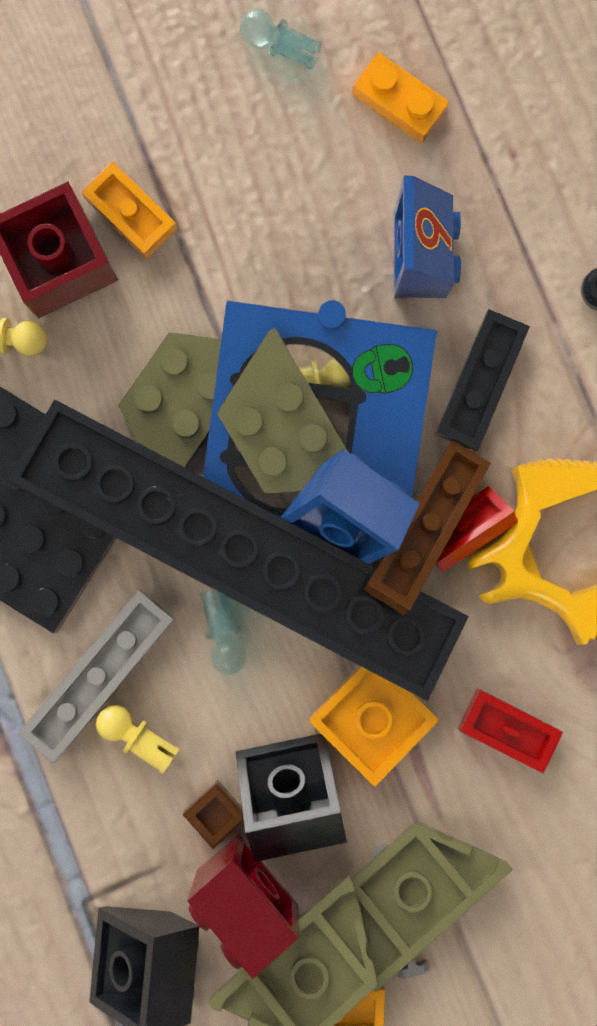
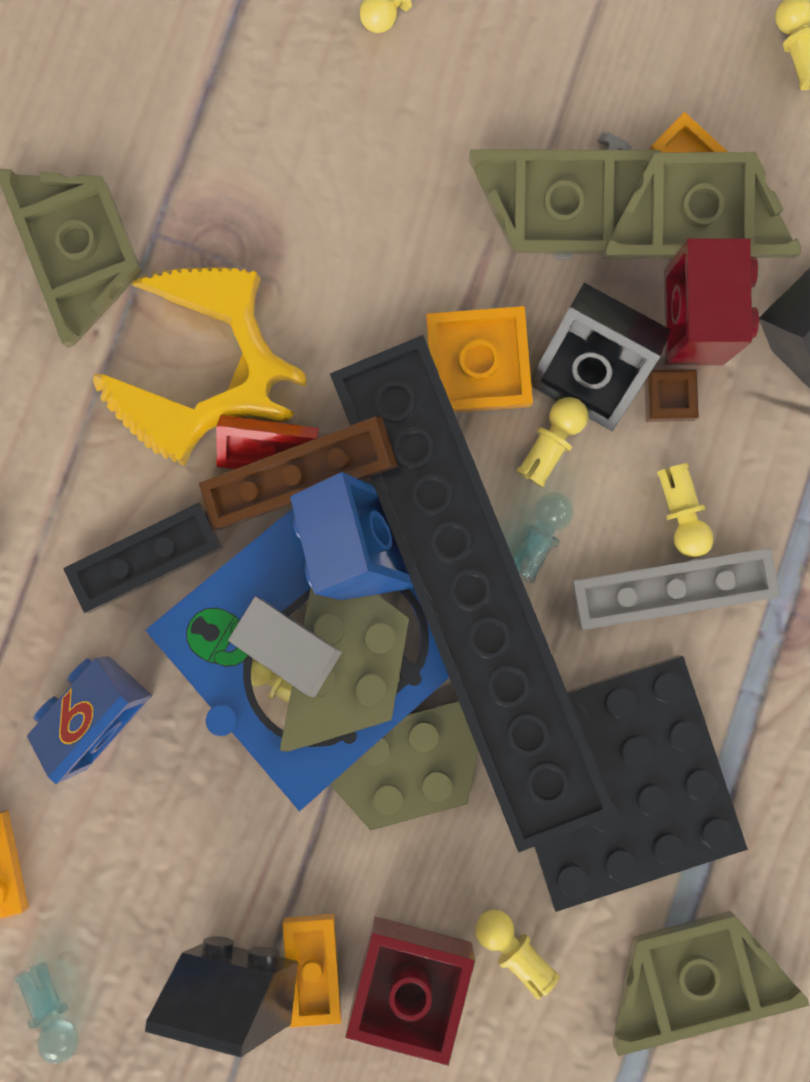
camera: 130 degrees left, 0 degrees up
(170, 140) = (225, 997): none -> black slope
(274, 732) = (566, 418): none -> light yellow pin
(332, 398) = (284, 646): none -> light grey tile
(510, 730) = (375, 257): red plate -> none

